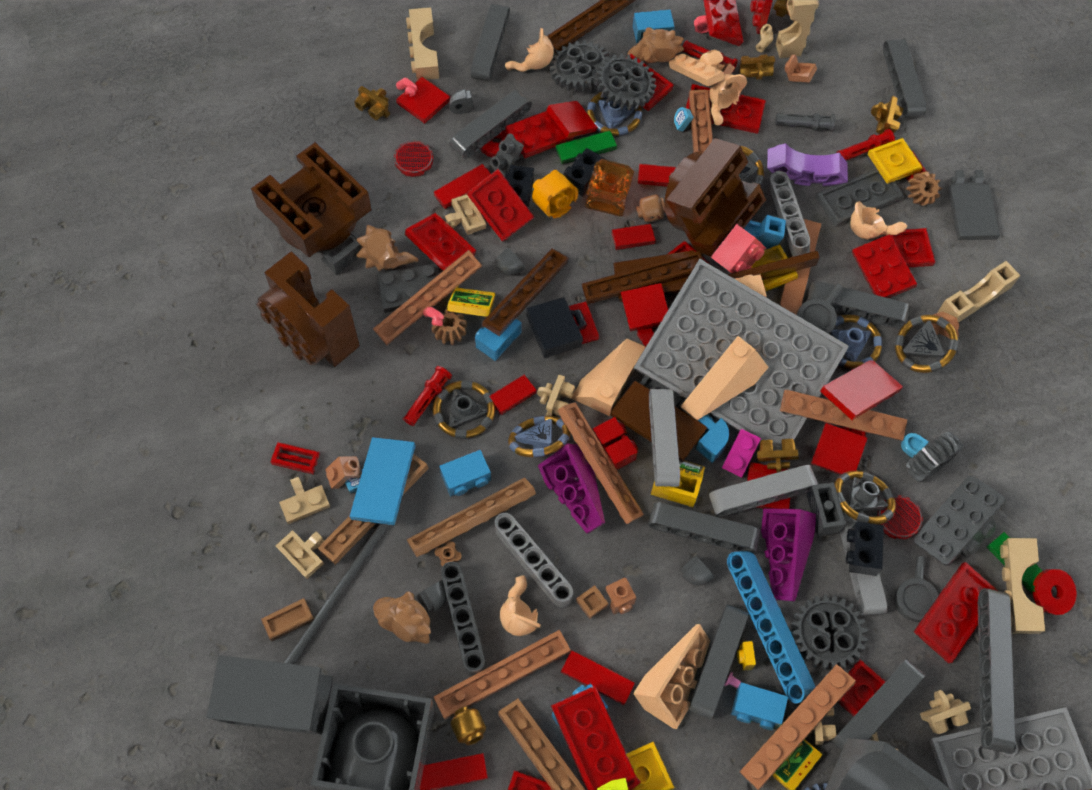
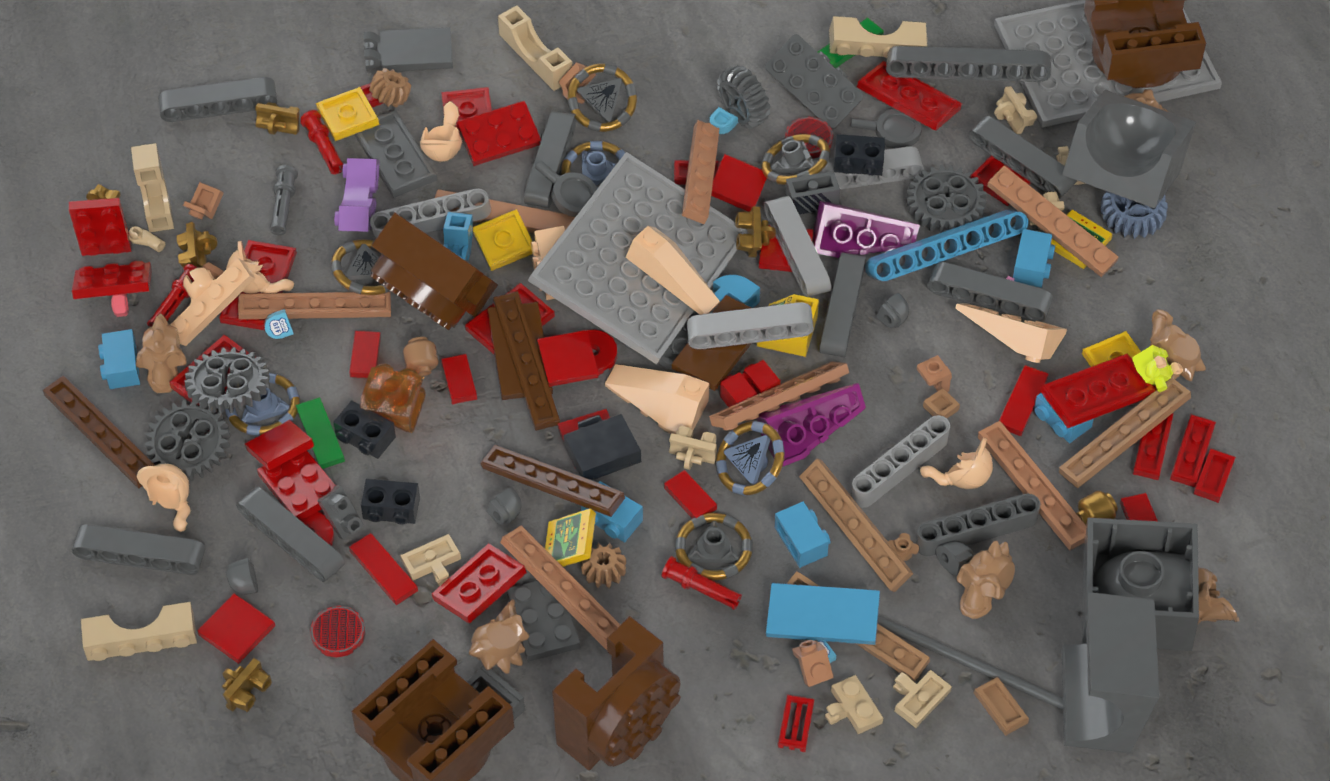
camera: 90 degrees left, 10 degrees down
(410, 87) = (214, 644): coral arm -> none
(437, 317) = (594, 574): coral arm -> none
(500, 205) = (425, 513): red tile -> none
(554, 194) = (406, 455): light orange brick -> none
(738, 250) = (497, 256): coral brick -> none
(741, 453) = (749, 266): dark pink plate -> none
(746, 656) = (983, 264): yellow plate -> none
(781, 267) = (520, 237): reddish brown tile -> none
(861, 389) = (669, 153): tile -> none
(1065, 588) = (878, 16): red tile -> none

